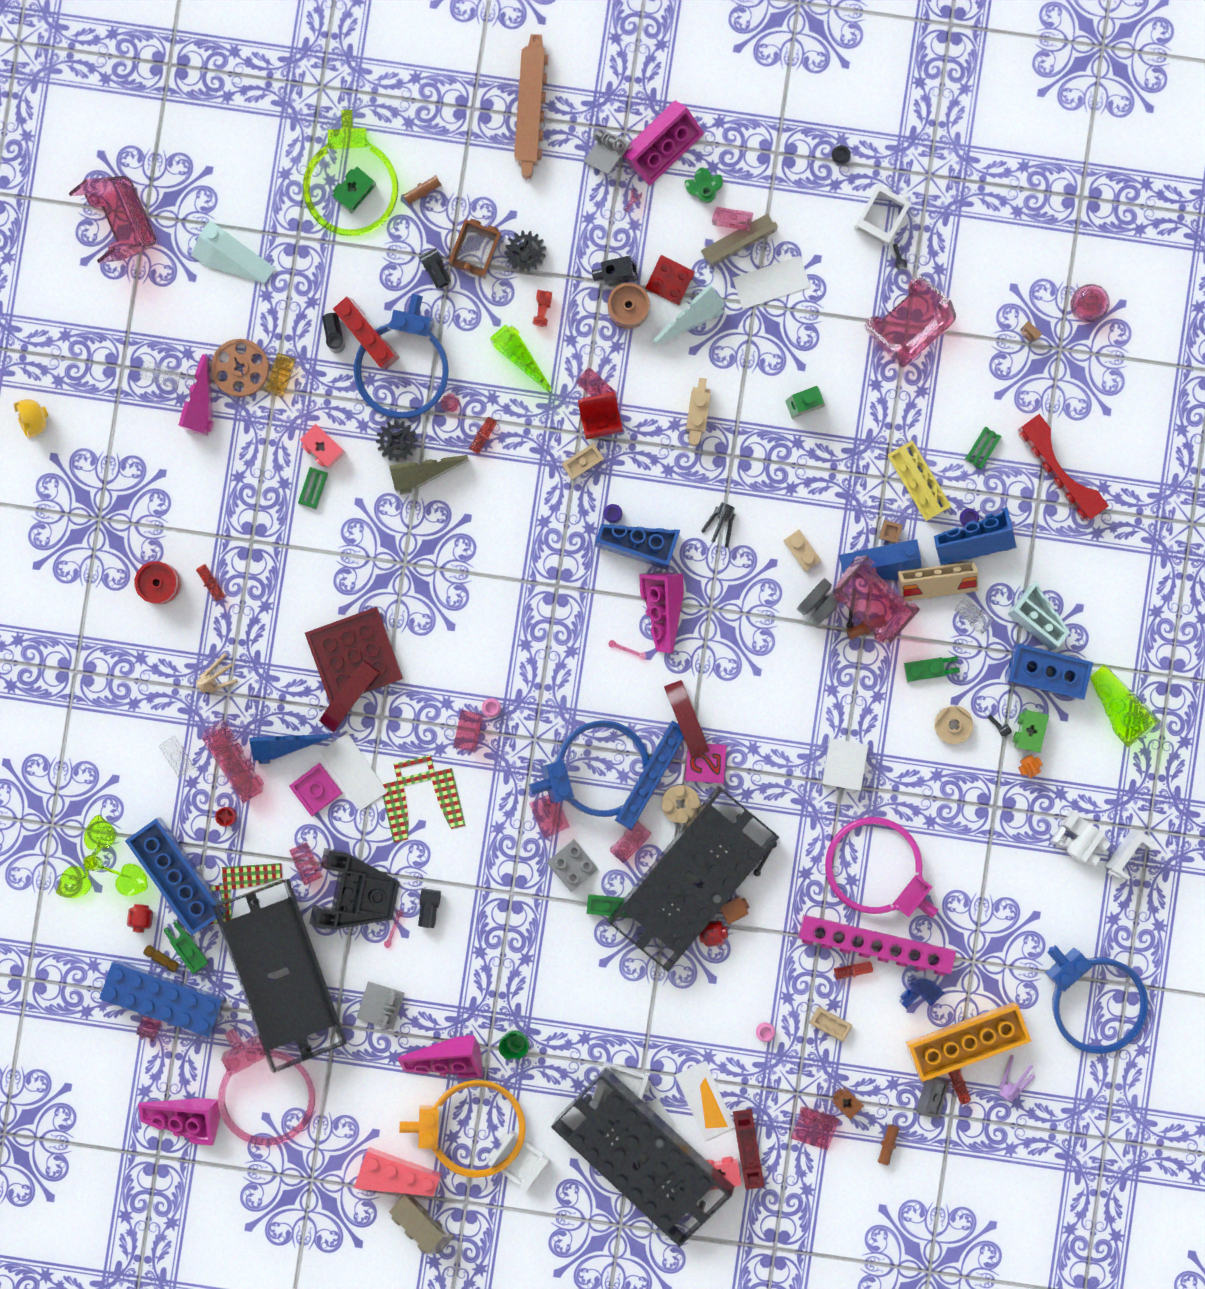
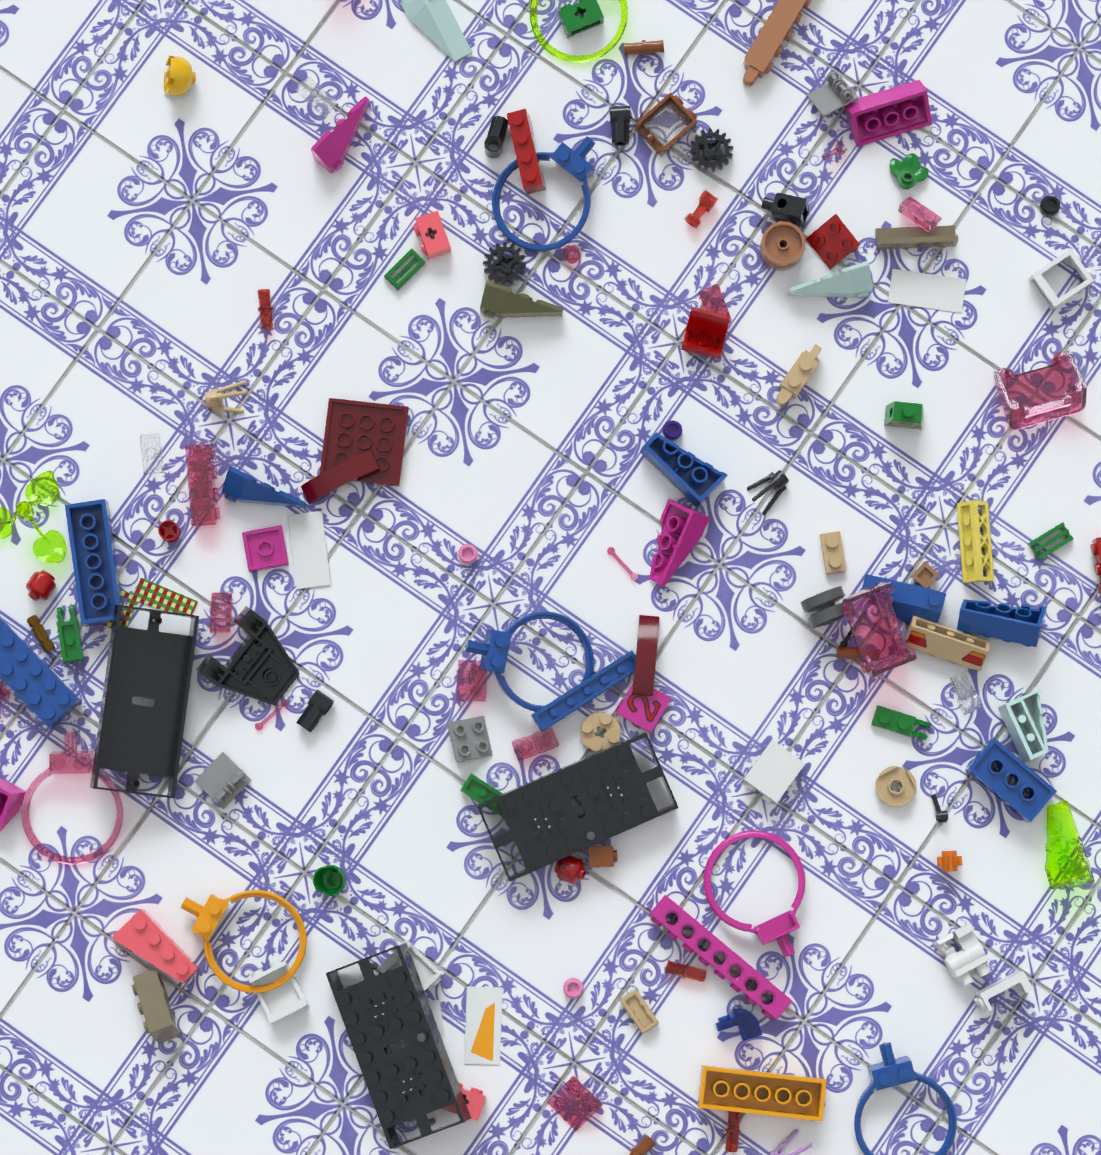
camera: 20 degrees right, 5 degrees down
(169, 582) = (221, 295): red wheel -> none
(236, 376) = (400, 132): nougat wedge -> none
(280, 375) = (427, 151): clear yellow slope -> none
(444, 788) = (385, 609): piece -> none
(453, 1056) = (266, 862): dark pink wedge -> none
(468, 730) = (435, 565): clear pink panel -> none
(483, 435) = (587, 298): clear red axle -> none
(510, 344) = (655, 231): clear neon green wedge -> none
(582, 461) = (667, 368): tan plate -> none
(748, 1149) = (502, 1090): dark red slope -> none
(757, 872) = (640, 833): black hinge -> none
(851, 1109) = (615, 1102): dark orange brick -> none
(898, 257) = (1058, 325): black hand -> none
(932, 1097) = (702, 1130): flat silver slope -> none
(968, 515) = (1006, 596): dark purple plate -> none
(1038, 723) = (977, 823): bright green brick -> none

